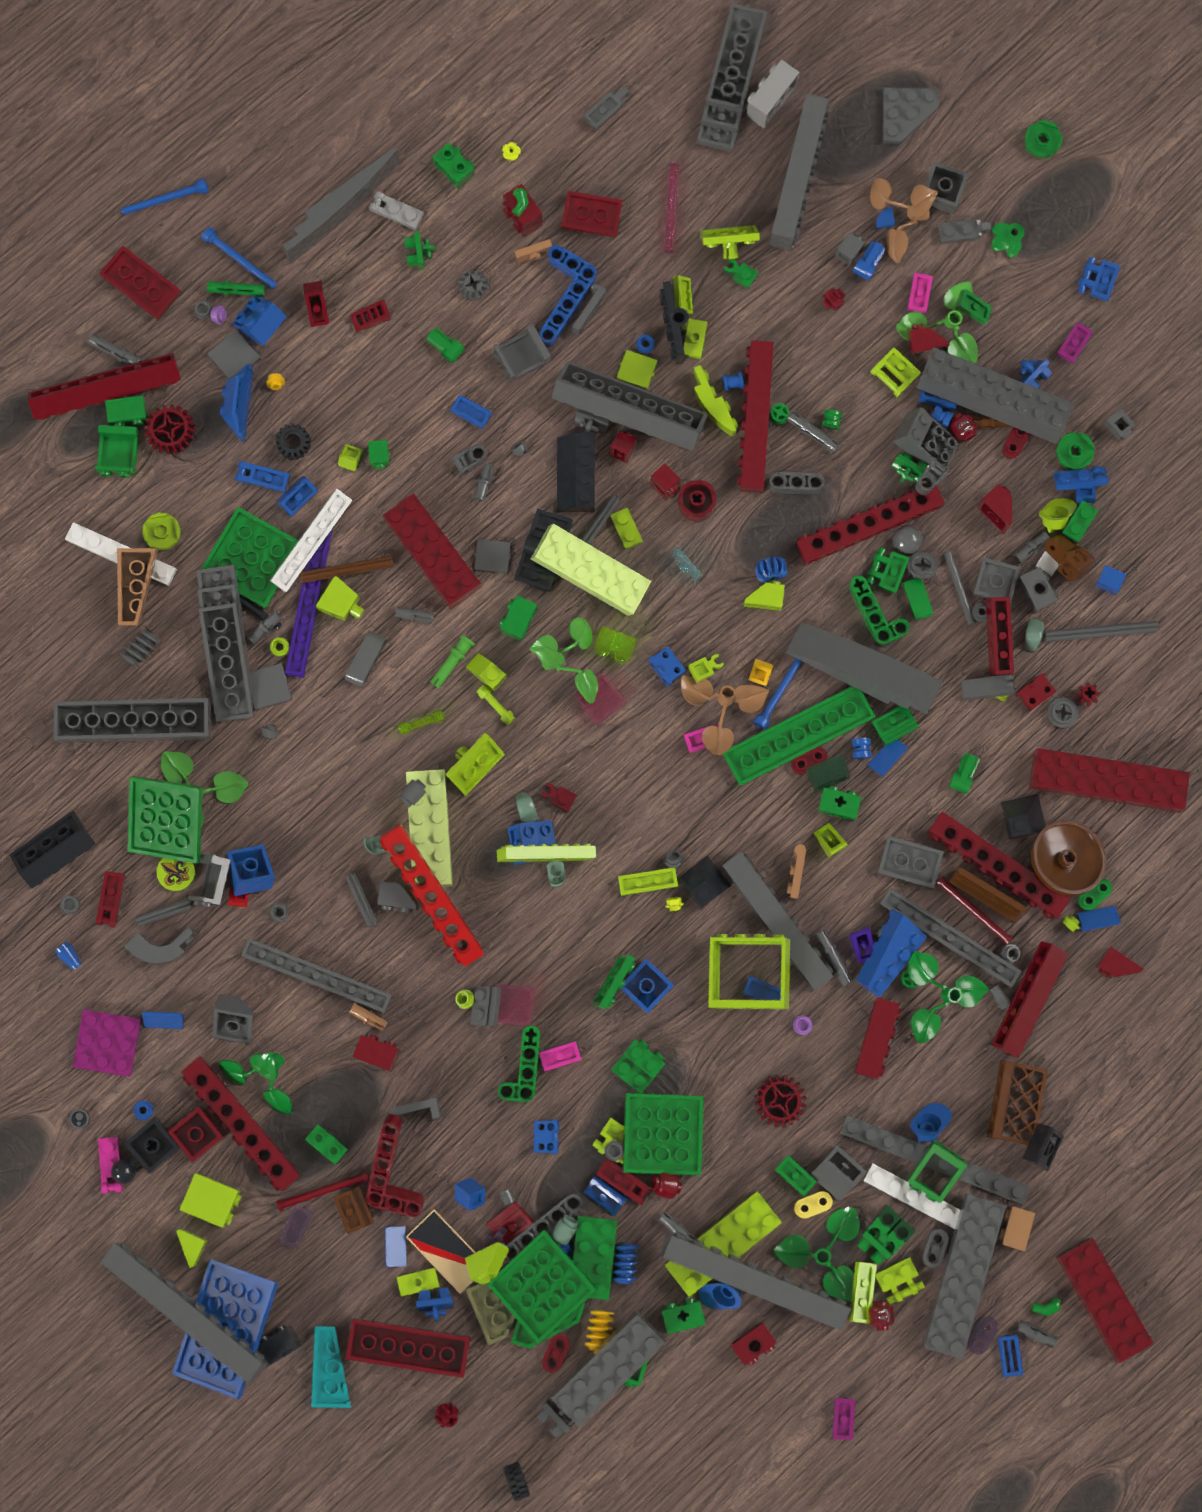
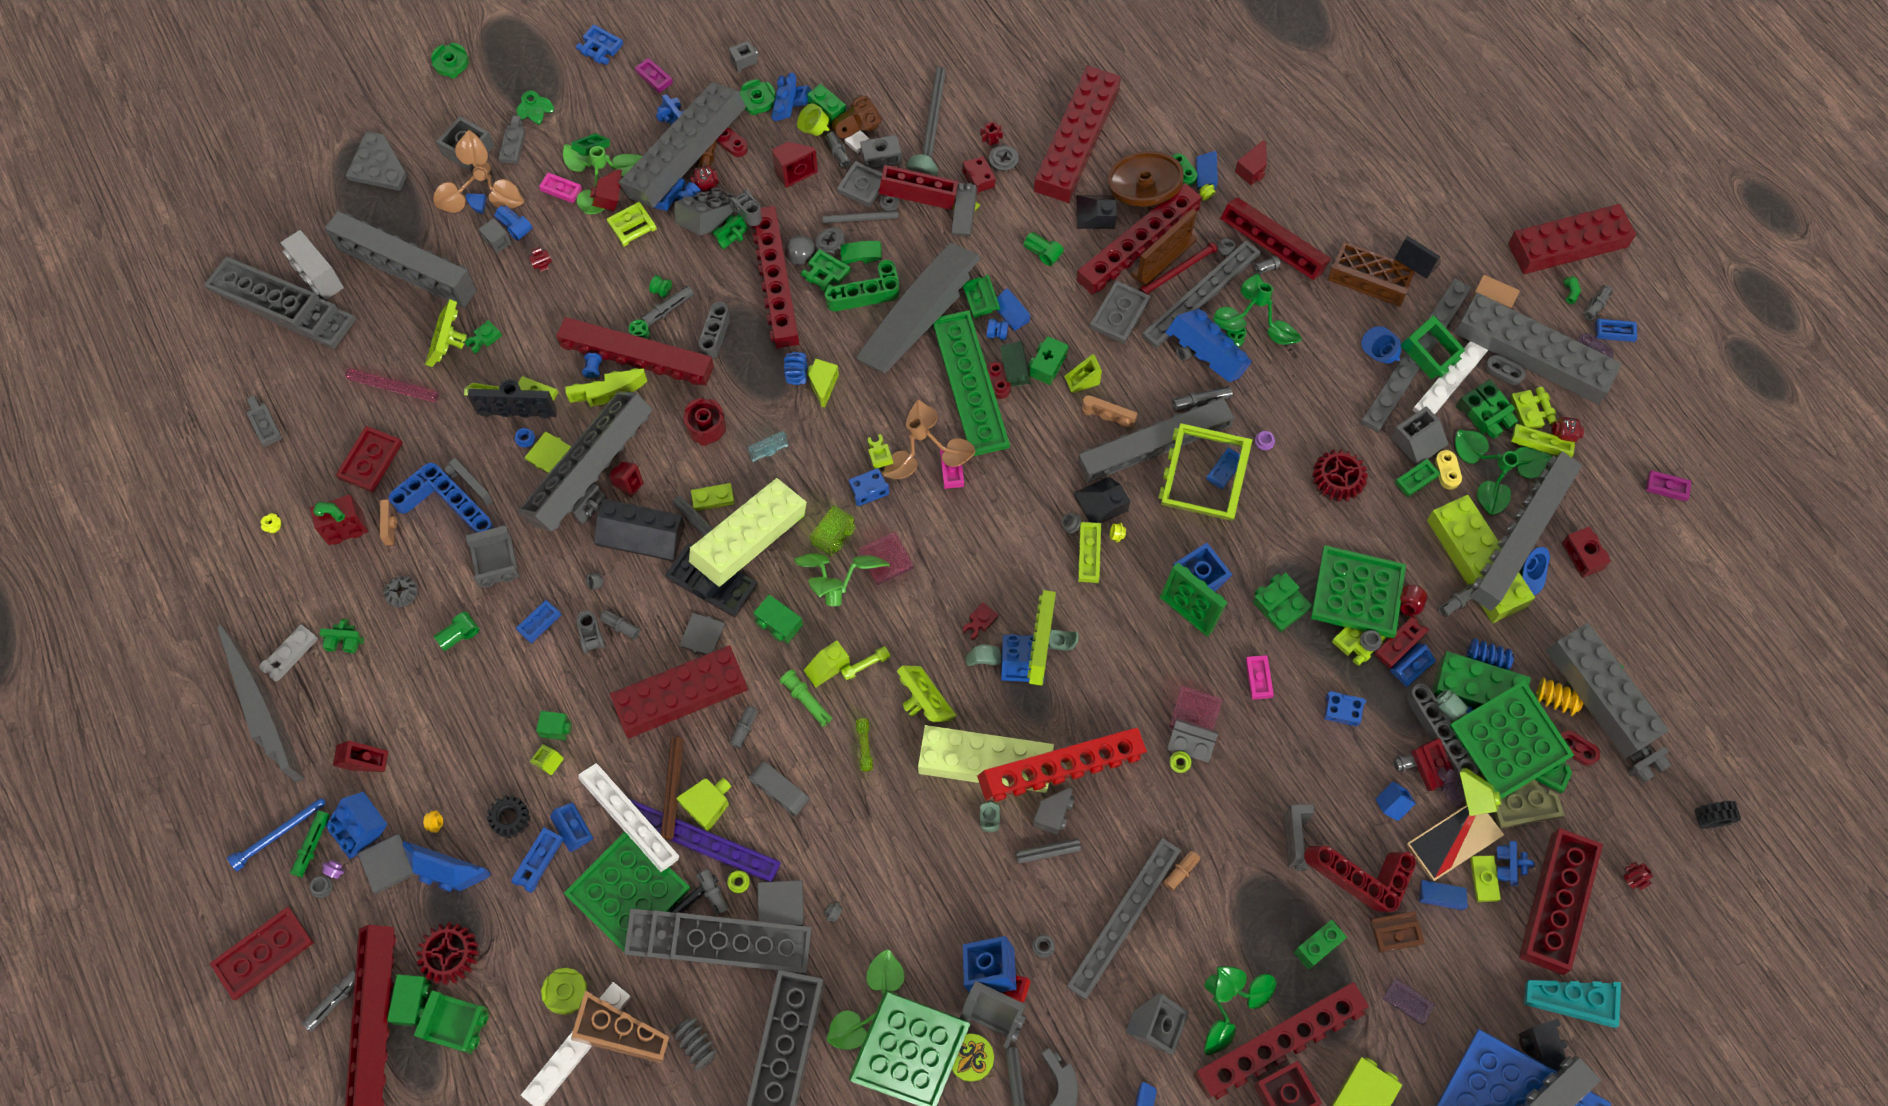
camera: 75 degrees left, 15 degrees down
(199, 187) = (175, 860): blue piece -> none
(322, 1191) = (1370, 963): dark red bar -> none
(373, 322) = (388, 703): dark red slope -> none
(376, 1053) = (1228, 862): dark red brick -> none
(412, 792) = (945, 759): dark grey brick -> none
(453, 165) = (262, 582): green brick -> none
(524, 1063) = (1262, 715): green beam -> none
(665, 482) = (677, 443): dark red brick -> none
(694, 1319) = (1552, 613): green brick -> none
(760, 672) = (897, 404): yellow slope -> none
(762, 719) = (947, 411): blue piece -> none
(862, 944) = (1192, 369): dark purple slope -> none
(876, 1038) = (1290, 376): dark red brick -> none
(1110, 580) = (889, 91): blue panel -> none

